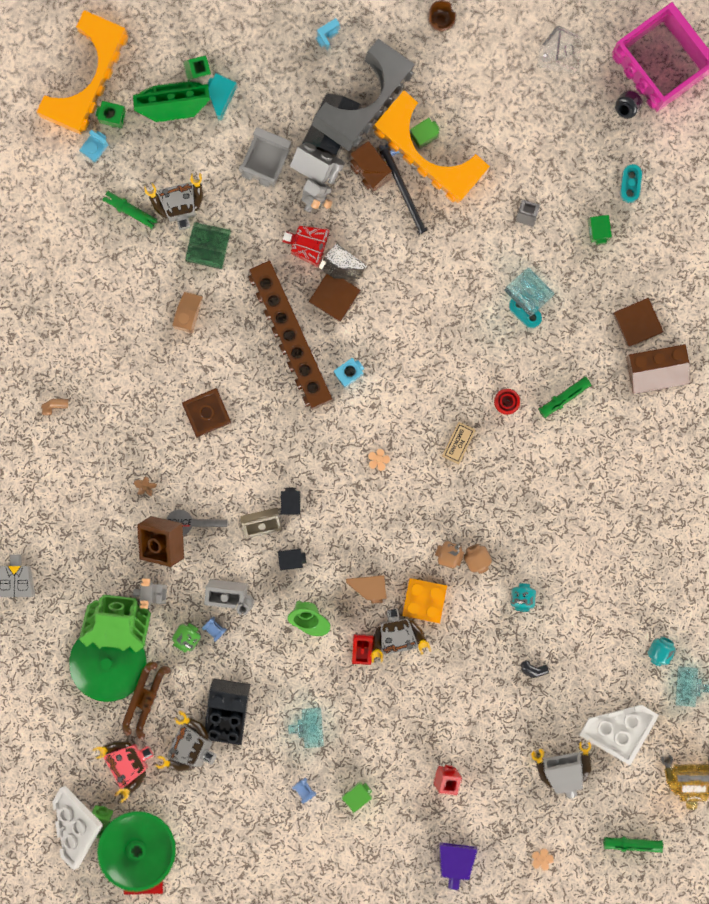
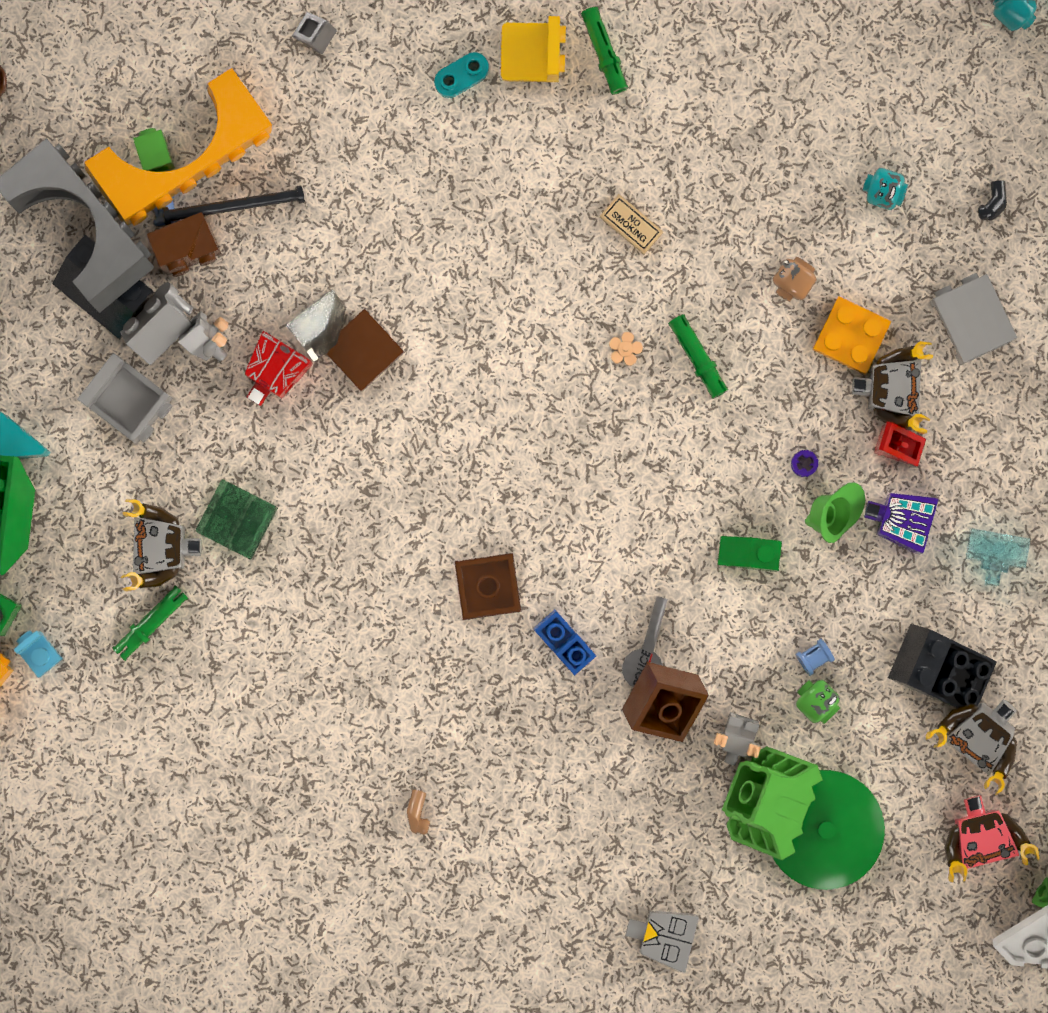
camera: 70 degrees left, 0 degrees up
(143, 699) = (893, 788): reddish brown piece -> none
(144, 486) = (575, 706): medium nougat plant -> none
(183, 469) = (564, 642): none -> blue slope
(187, 312) = (329, 575): medium nougat slope -> none
(228, 595) = (772, 621): light grey hinge -> none
(261, 523) = (674, 547): dark tan slope -> none
(266, 272) = (301, 439): reddish brown brick -> none
(268, 570) = (749, 553): none -> green slope
(290, 501) = (655, 494): black brick -> none
(291, 559) = (741, 515): black brick -> none
(315, 663) = (904, 519): none -> torso
(341, 591) = (805, 454): none -> dark purple bush
(345, 380) = (487, 370): medium azure brick -> none
(369, 587) = (812, 410): medium nougat slope -> none
(388, 503) = (695, 351): none -> green pin
(455, 674) = (973, 318): none -> light grey panel
(477, 558) = (810, 240): medium nougat head -> none
(502, 397) = (597, 131): red cone -> none
(529, 292) = (435, 59): clear light blue plate -> none
(552, 352) = (532, 51): none -> yellow bracket

